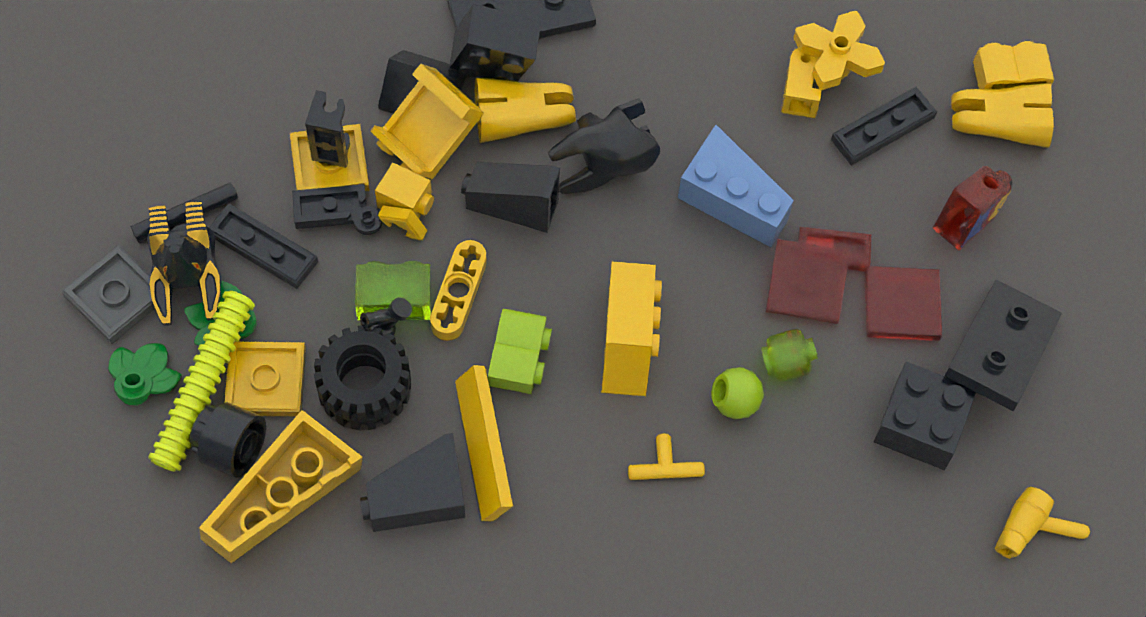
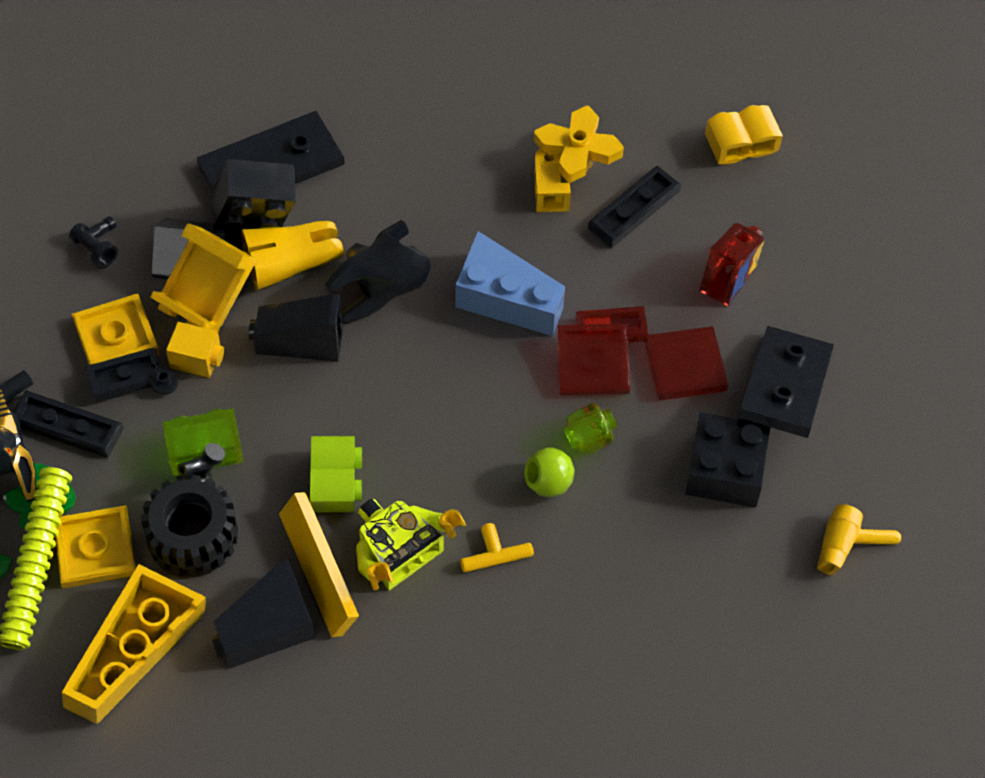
camera: 10 degrees left, 5 degrees down
(228, 438) = (71, 606): black piece -> none
(325, 132) = (109, 304): hinge -> none
(332, 75) = (103, 252): none -> black piece
(405, 219) = (200, 373): yellow tile -> none
(463, 304) = (270, 442): yellow beam -> none
(571, 434) = (400, 540): none -> torso
(630, 328) = (436, 432): yellow wedge -> none
(1009, 113) = (750, 173): yellow piece -> none

